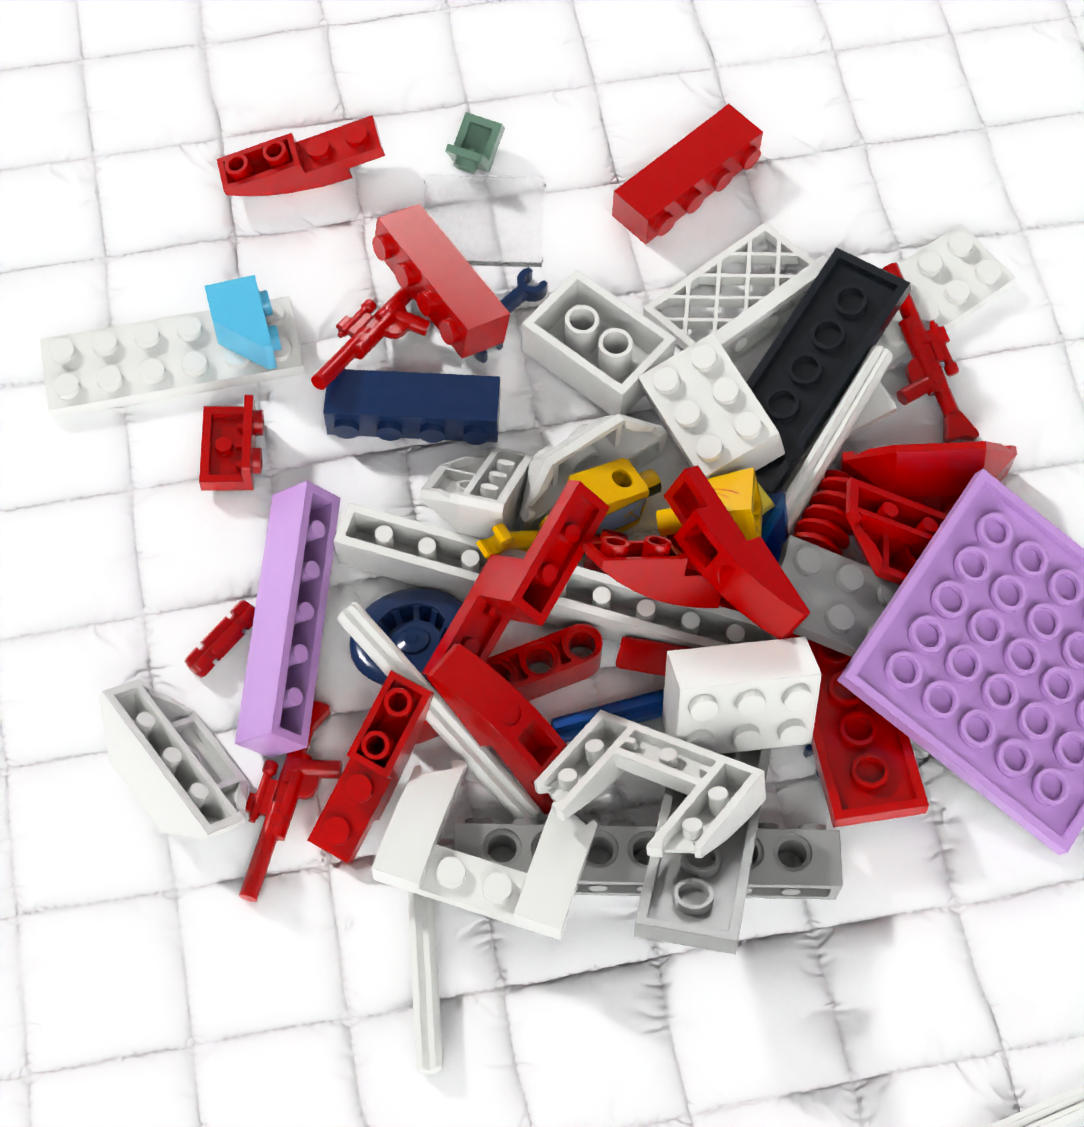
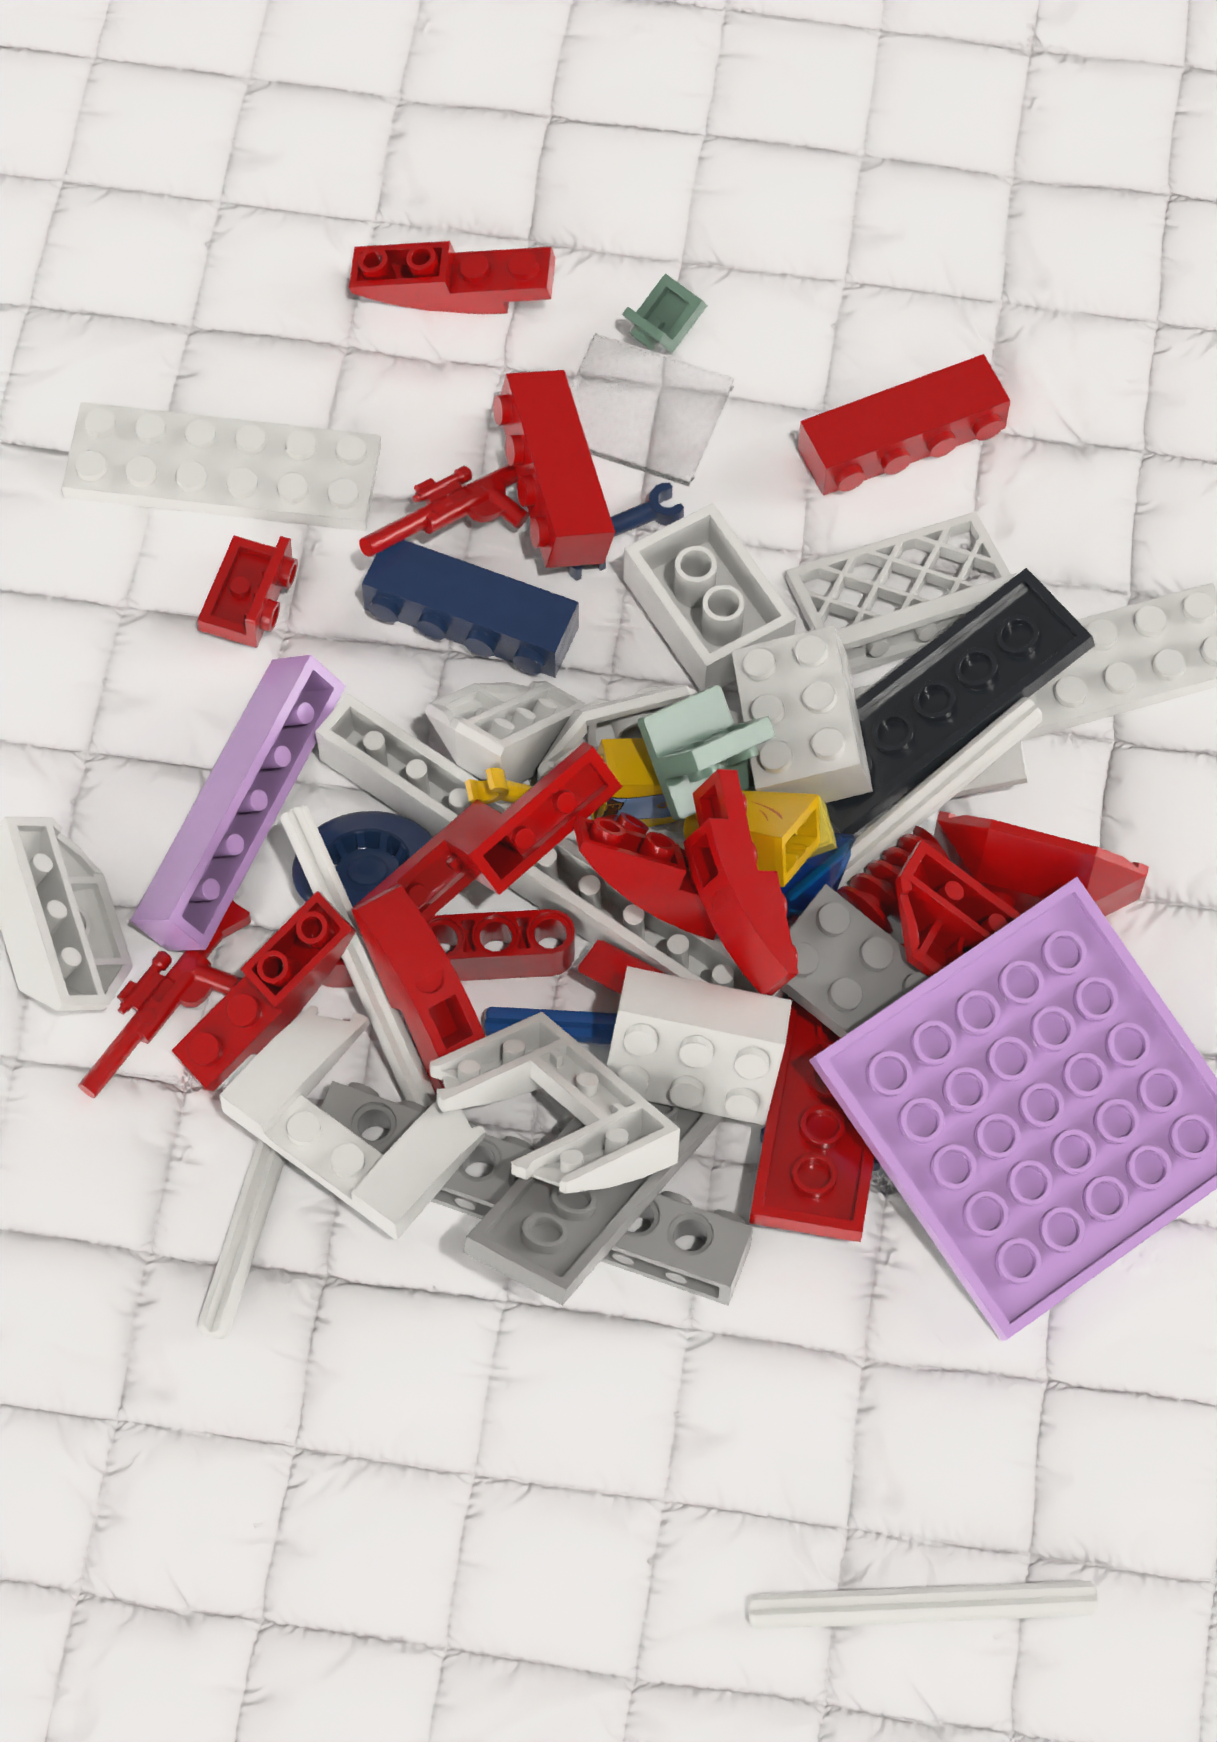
camera: 20 degrees right, 0 degrees up
(221, 639) = (158, 803): red axle -> none
(240, 320) = (308, 448): medium azure slope -> none
(649, 459) = (695, 740): none -> bracket
(924, 370) = (1086, 745): red piece -> none

